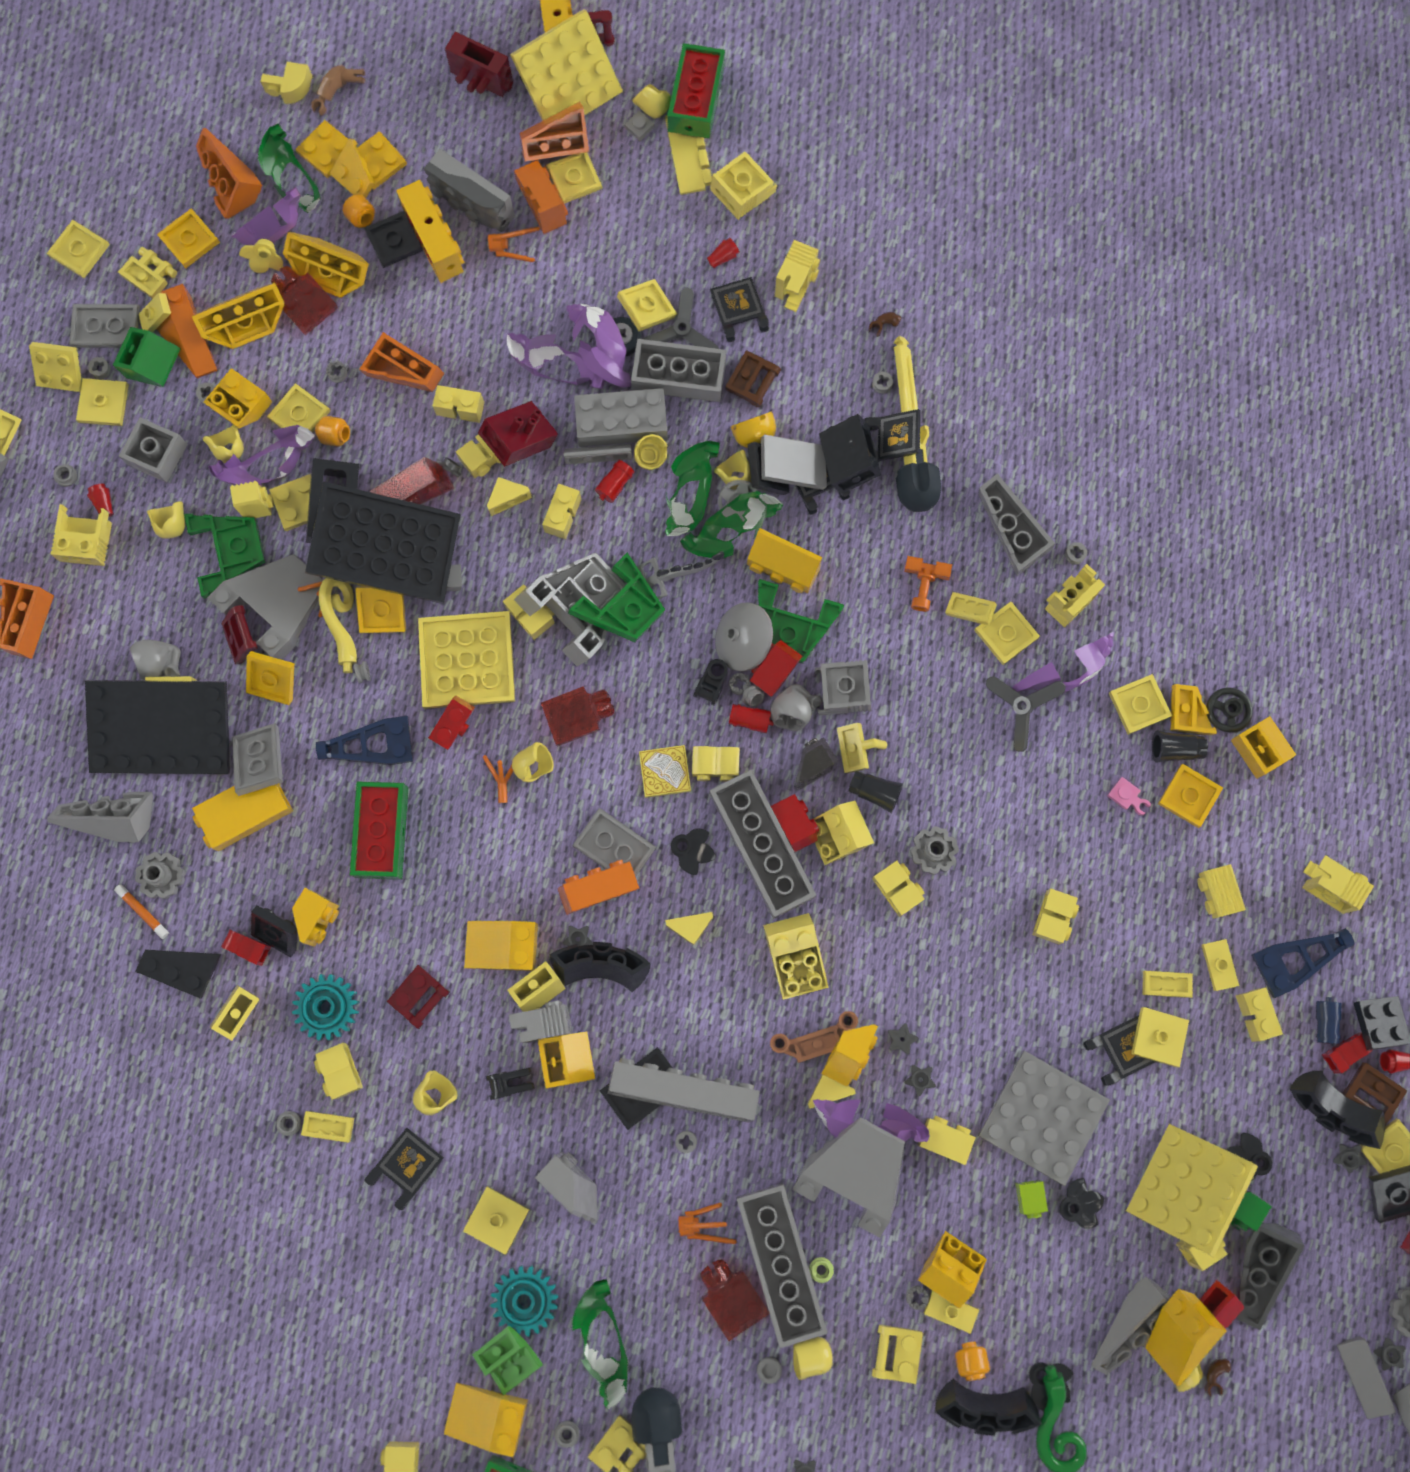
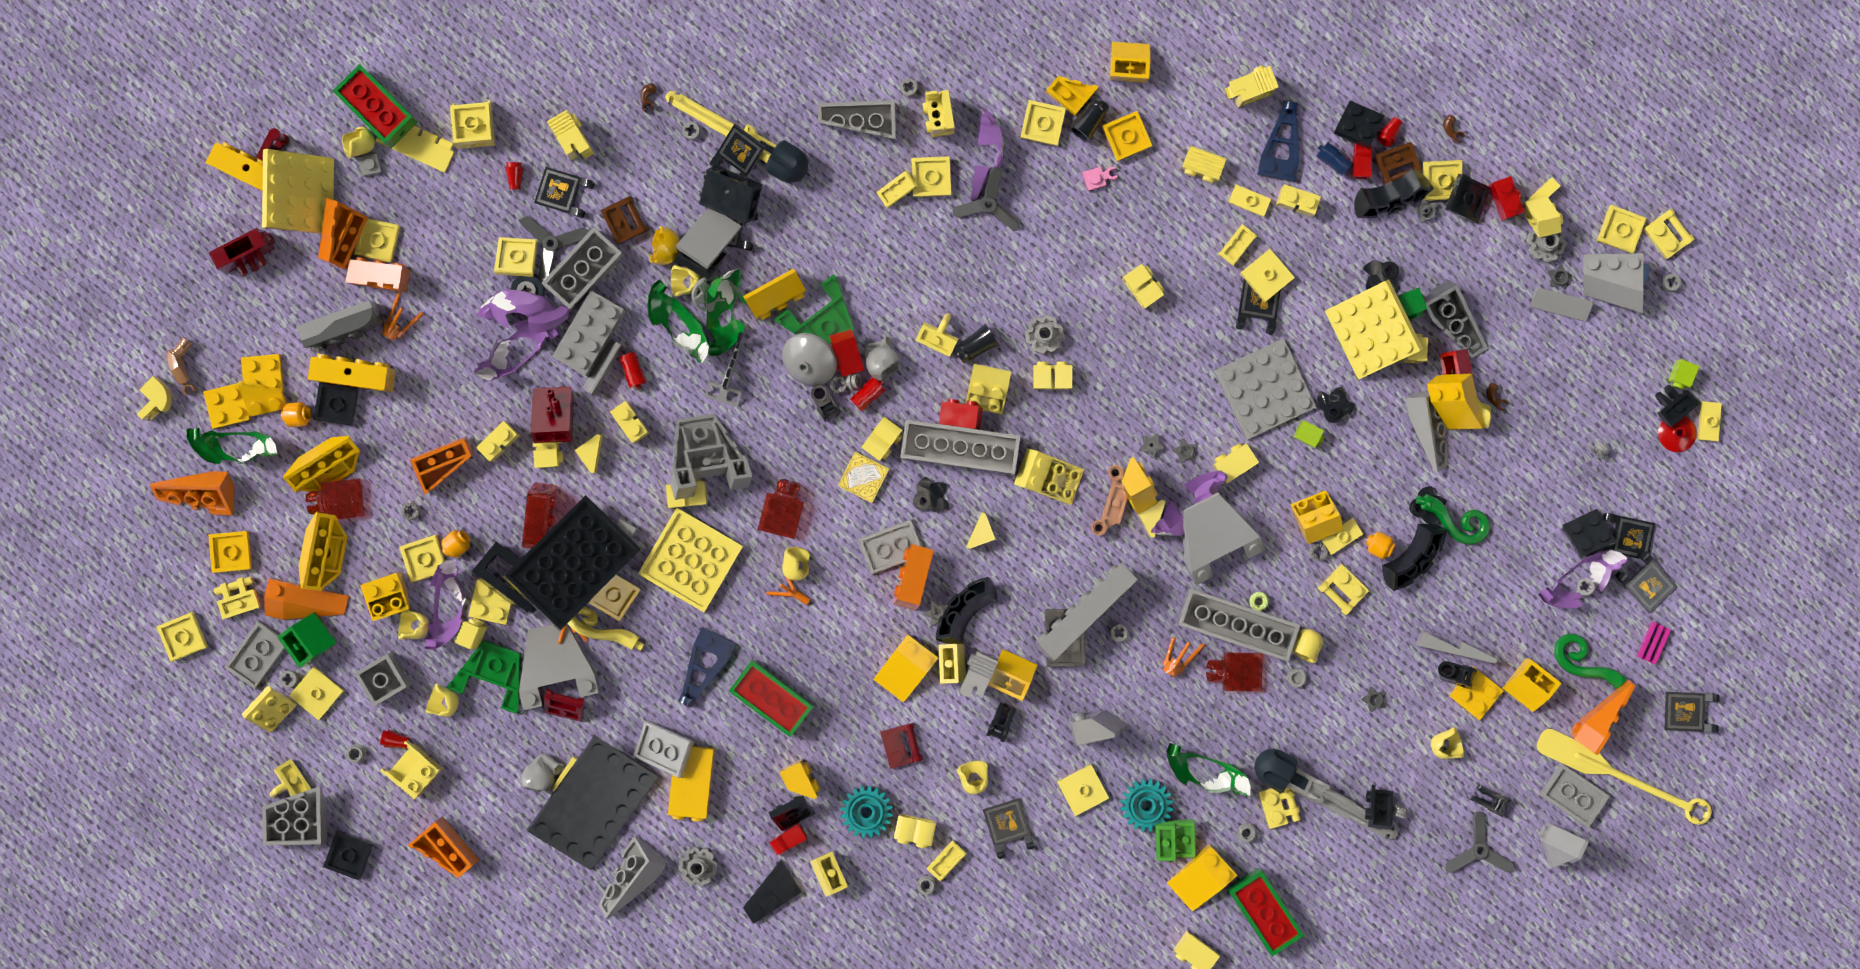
camera: 60 degrees left, 10 degrees up
(141, 911) = (714, 894): orange bar -> none
(155, 312) = (276, 613): light yellow plate -> none
(203, 387) = (356, 614): light grey bush -> none
(262, 256) = (285, 507): light yellow plate -> none
(266, 224) = (262, 490): medium lavender animal -> none
(269, 678) = (611, 703): yellow plate -> none
(362, 672) = (649, 637): light grey bush -> none
(450, 466) = (541, 477): dark grey plate -> none
(452, 722) = (730, 599): red brick -> none
(629, 611) = (736, 425): green wing -> none
(650, 452) = (629, 331): light yellow hair -> none
(815, 763) = (929, 374): clear smoke slope -> none
(845, 687) = (892, 315): light grey piece -> none
(926, 573) = (851, 200): orange bar -> none
(1236, 704) = (1088, 57): pearl dark grey piece -> none

